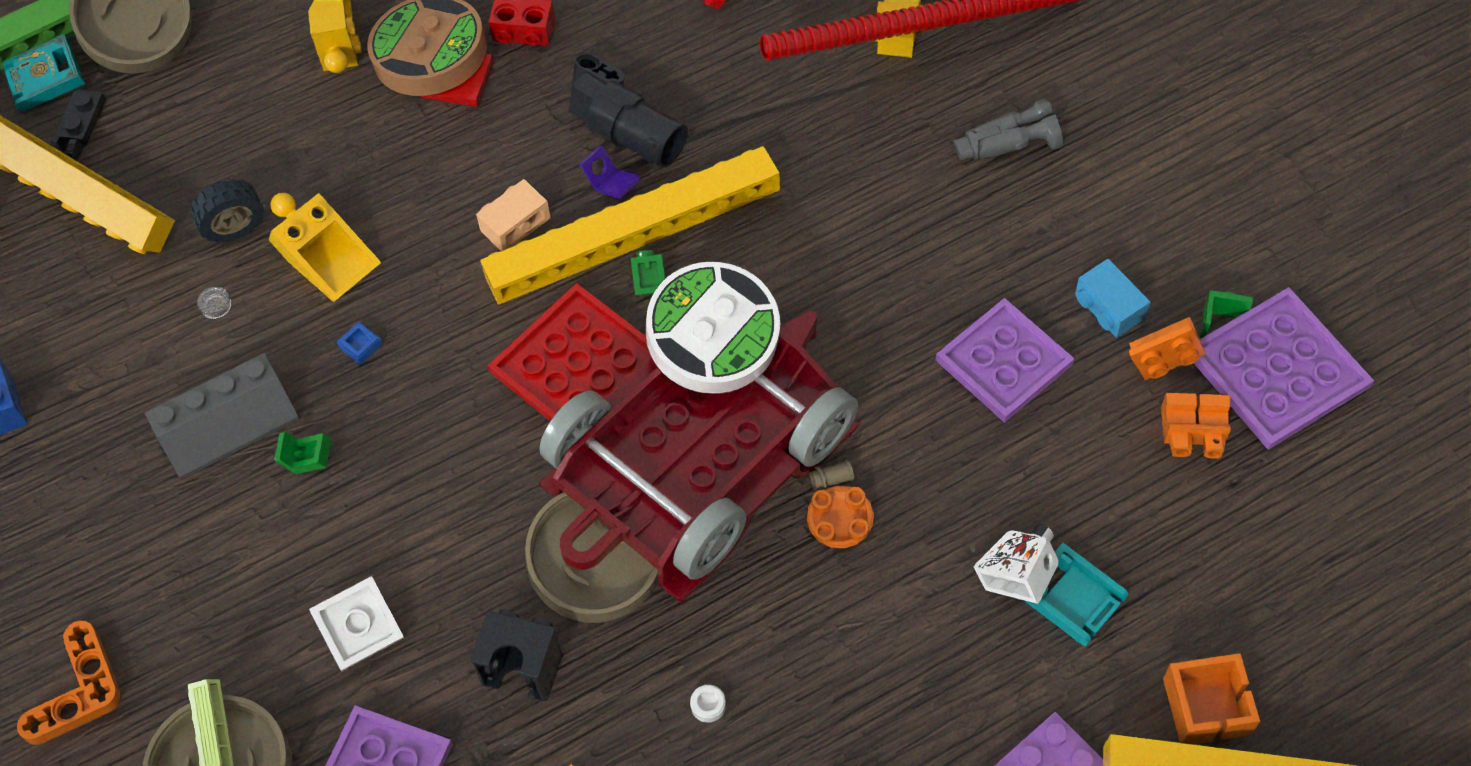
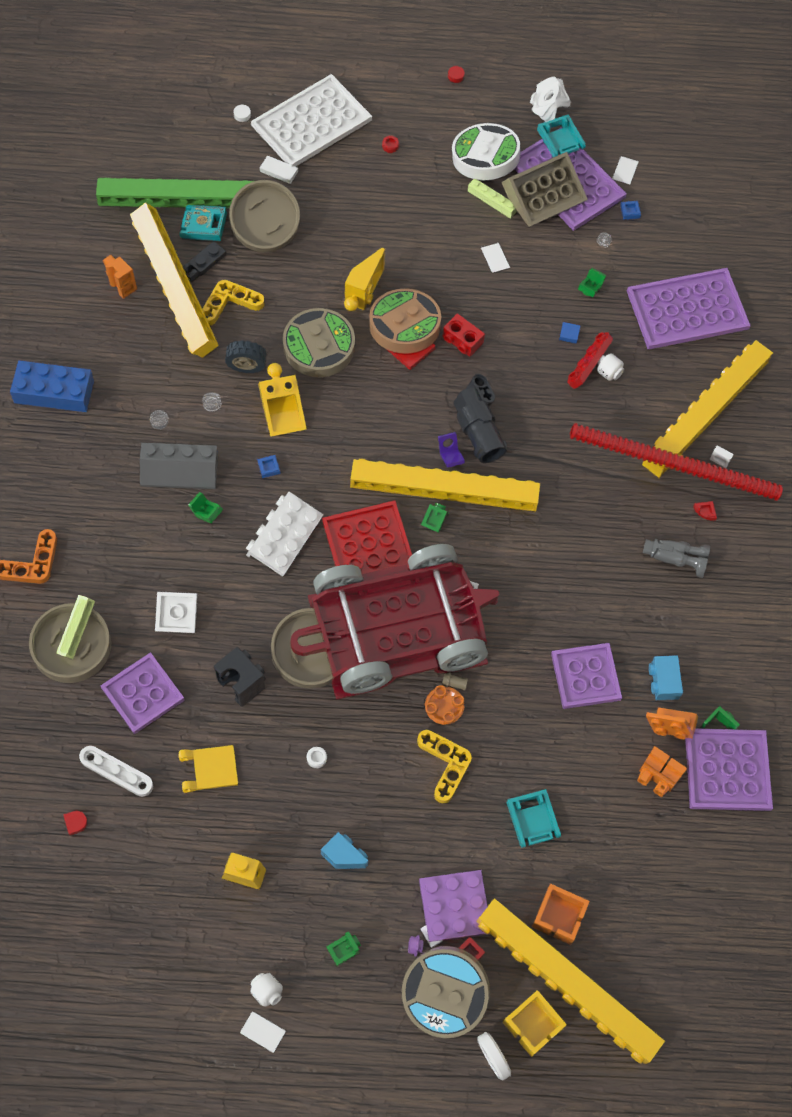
camera: 25 degrees right, 5 degrees up
(142, 150) = (224, 296): none -> yellow beam
(148, 371) = (158, 419): none -> clear tile
(321, 139) = (318, 342): none -> piece
(444, 419) = (284, 533): none -> white bracket
(513, 215) = (387, 443): light nougat brick -> none
(712, 327) = (439, 569): piece -> none
(909, 587) = (454, 764): none -> yellow beam
(1002, 62) = (706, 510): none -> red tile
(1019, 564) = (515, 786): white torso -> none

